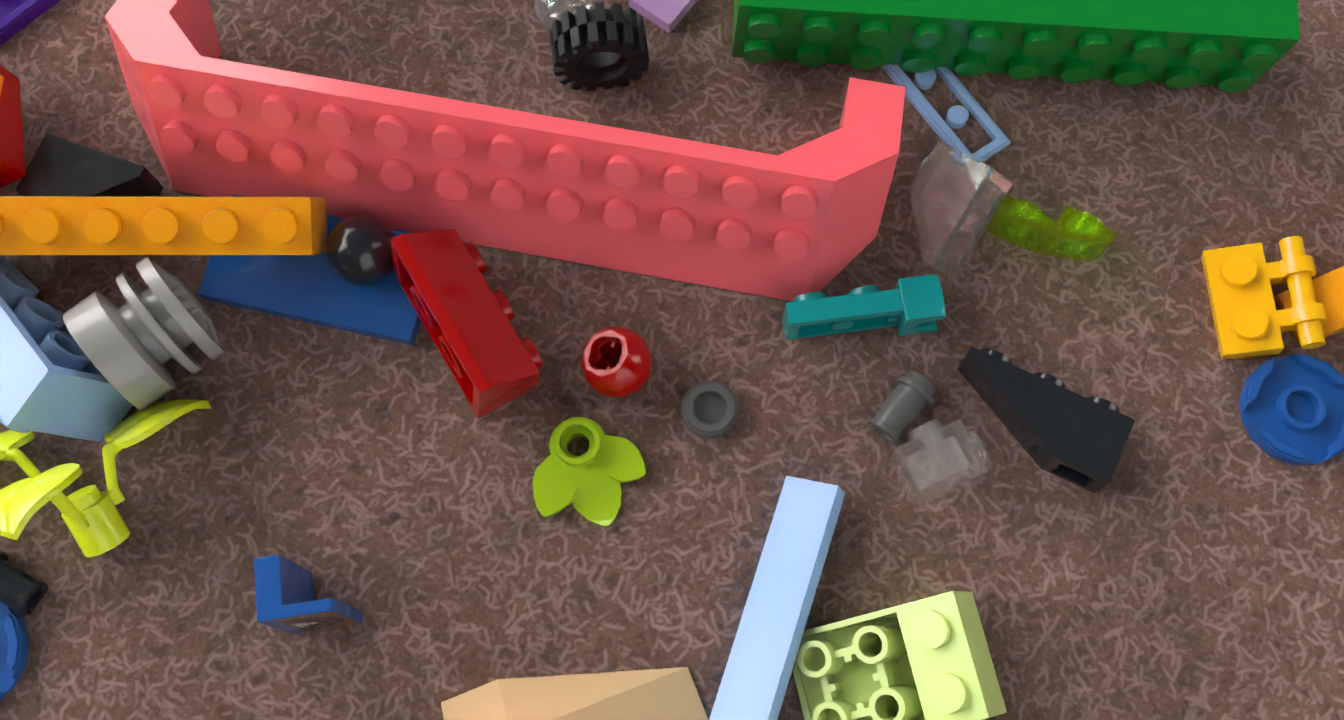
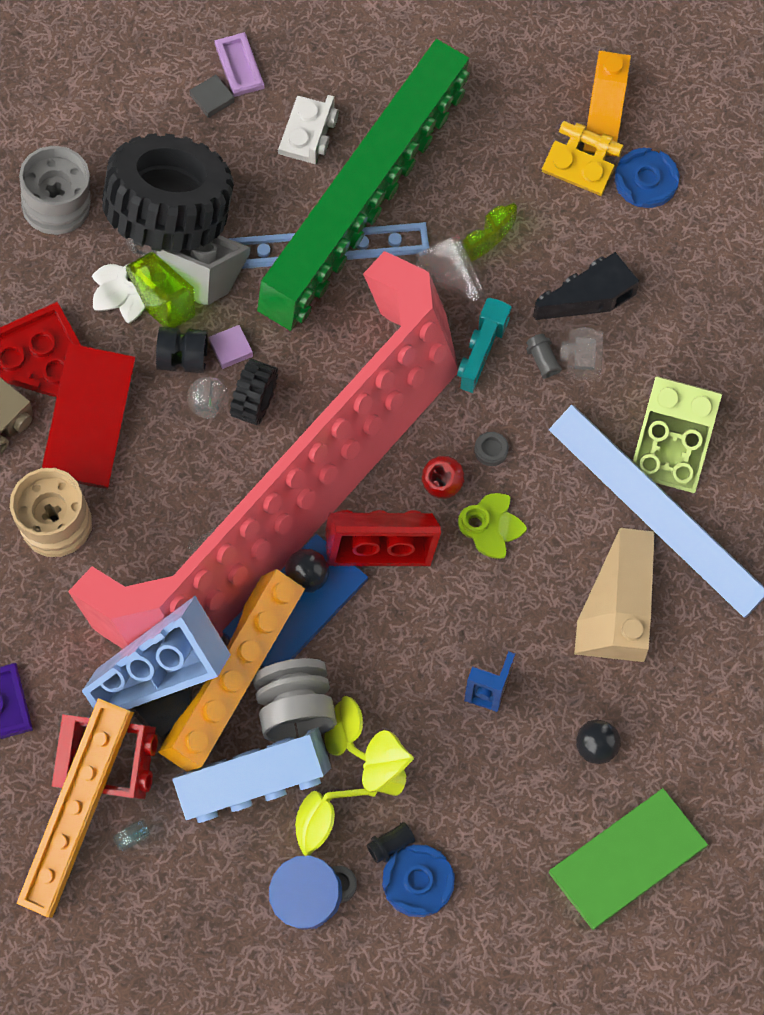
camera: 65 degrees left, 5 degrees down
(91, 127) = (163, 660): none -> light blue wedge

